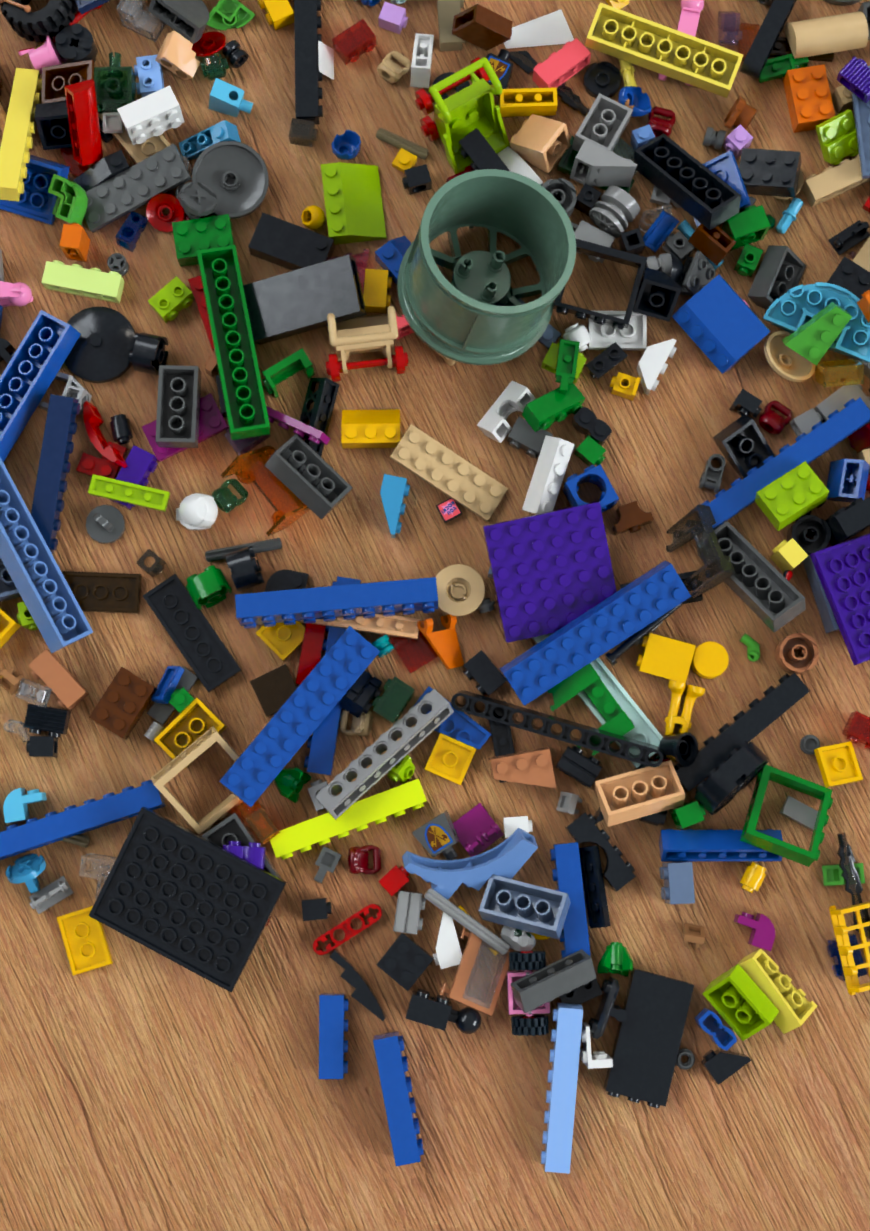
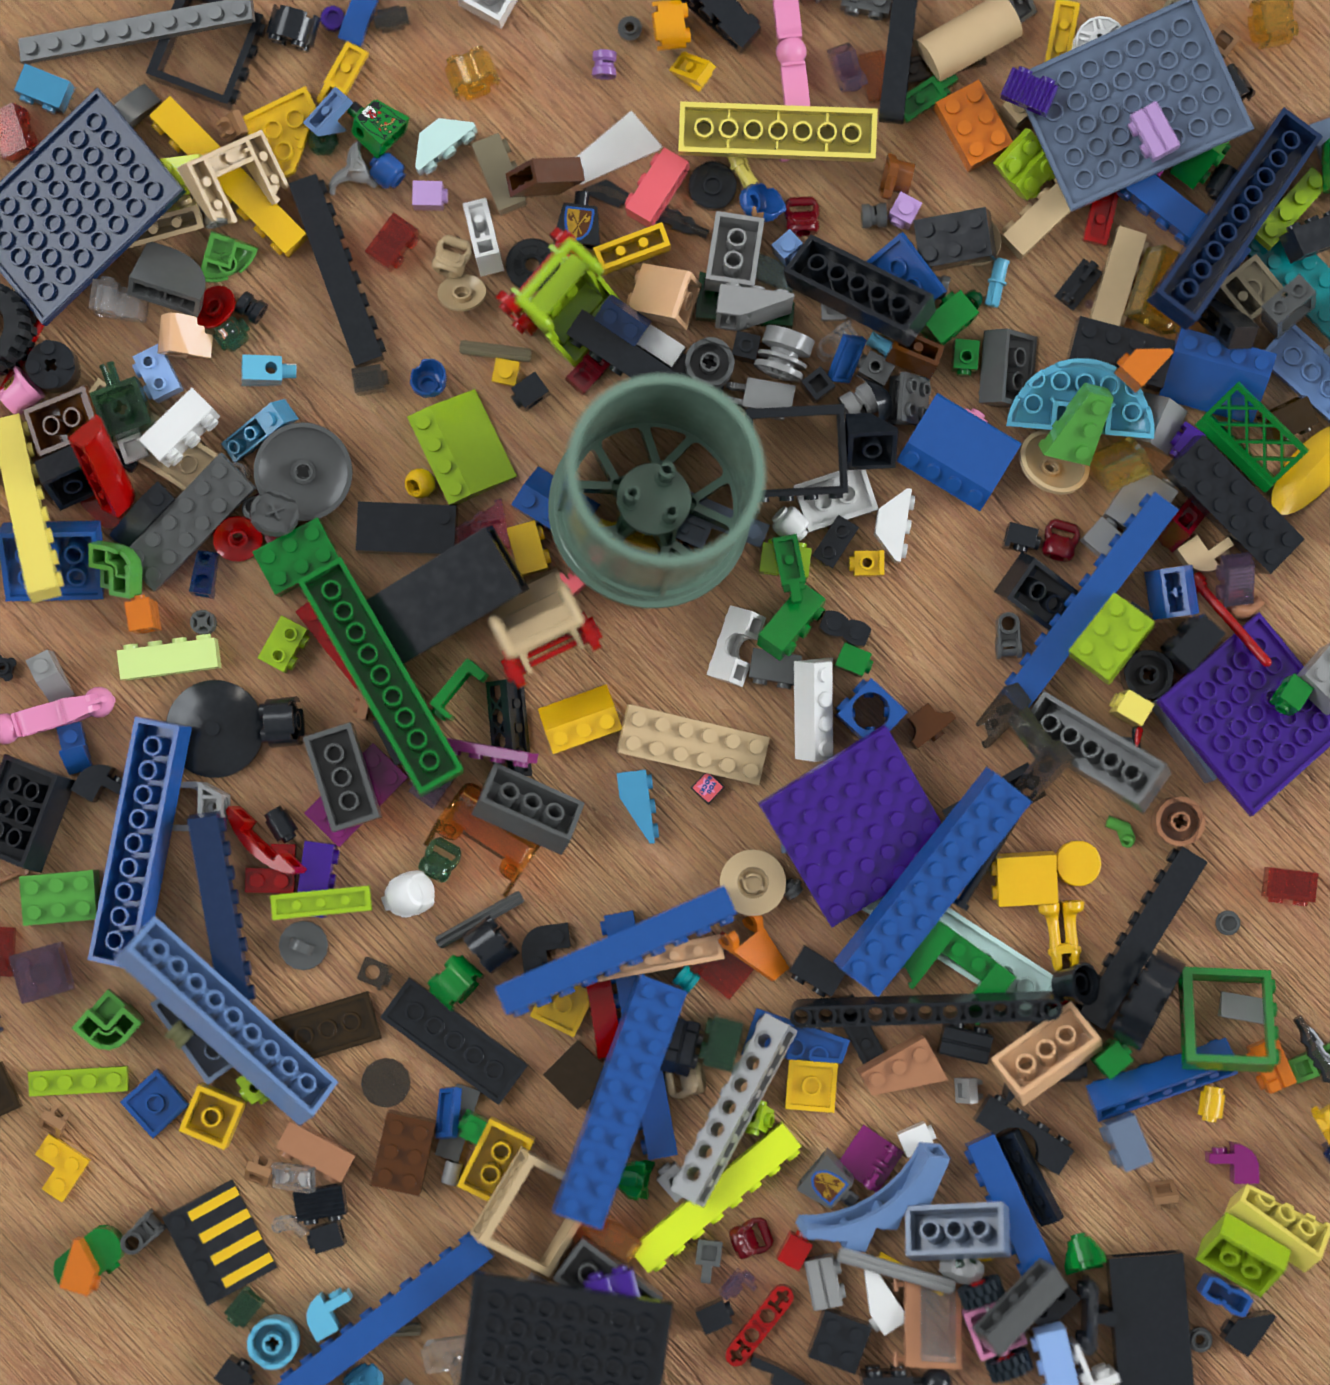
camera: 15 degrees left, 5 degrees up
(129, 647) = (386, 1082): none -> clear smoke tile
(326, 60) = (365, 278): white sticker -> none
(338, 891) = (733, 1286): none -> bracket
(392, 93) = (462, 293): none -> tan dish
(503, 145) = (622, 320): none -> dark blue brick
(809, 875) = (1281, 1075): none -> orange brick
(838, 764) = (1268, 937): yellow plate -> none

